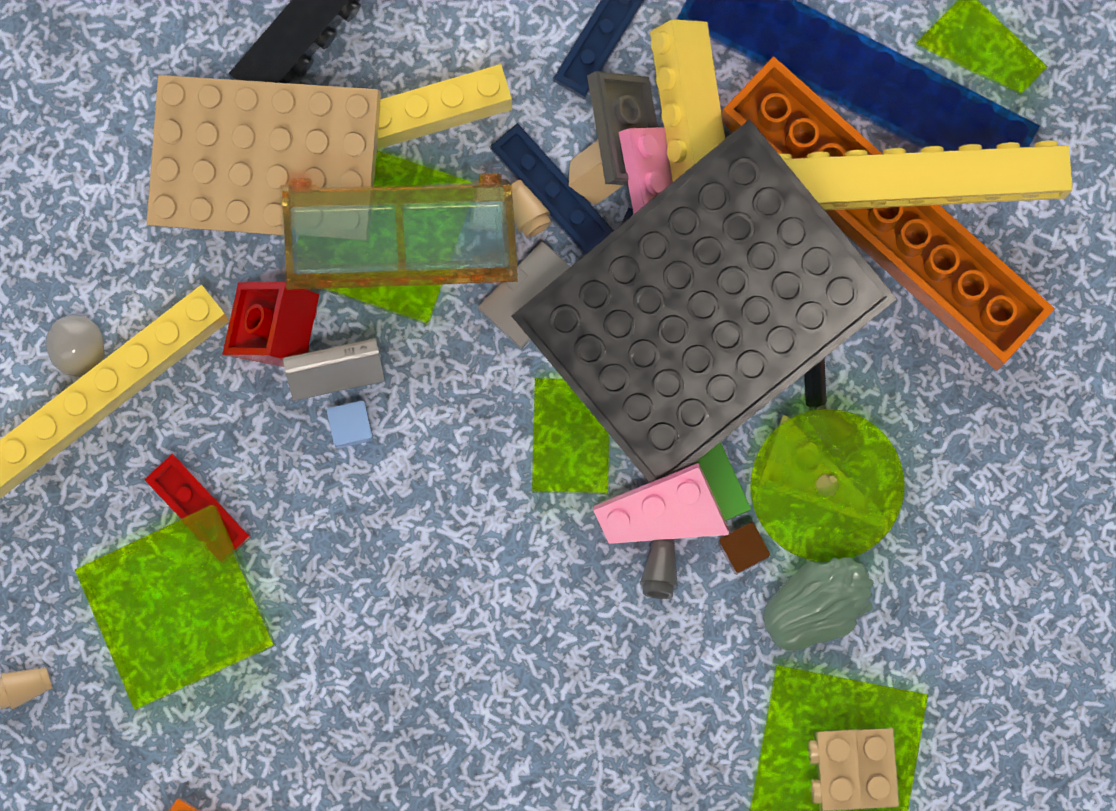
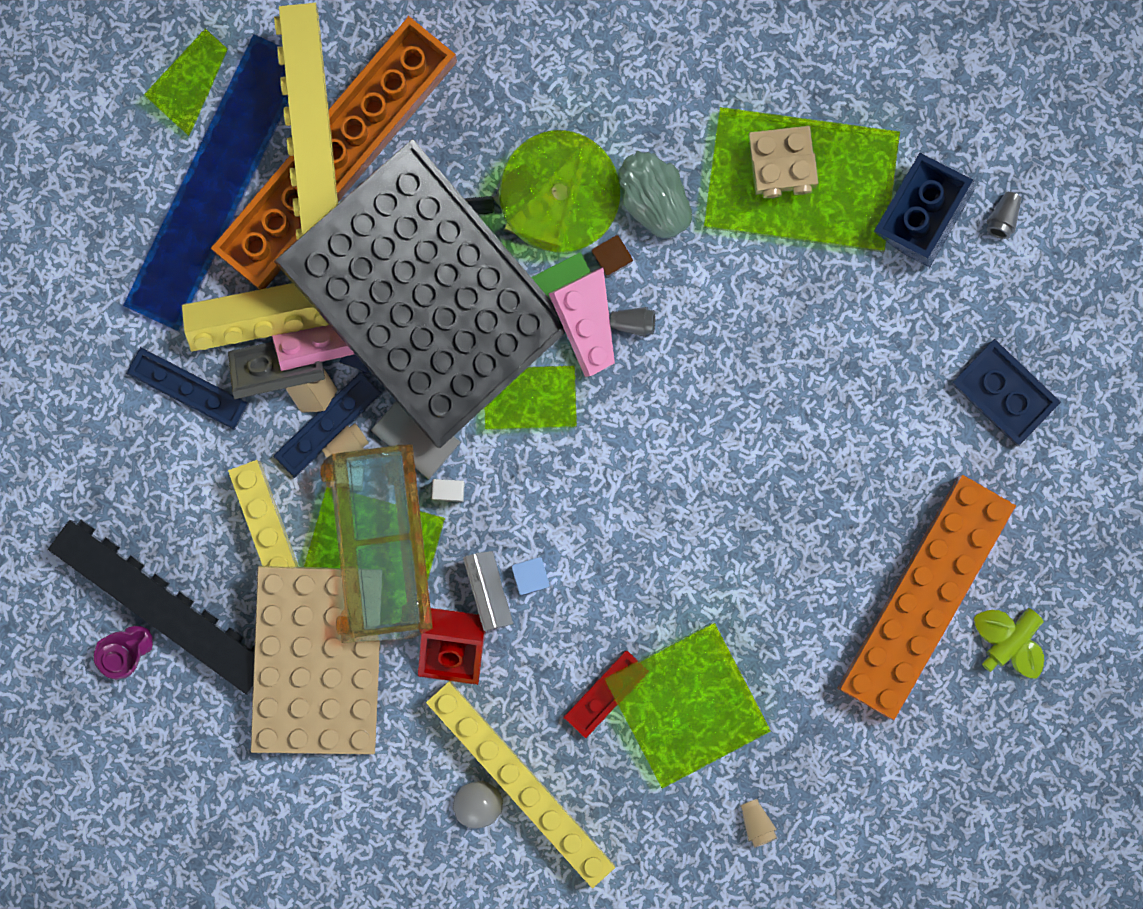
camera: 90 degrees left, 5 degrees up
(461, 329) = (448, 490): none -> white piece

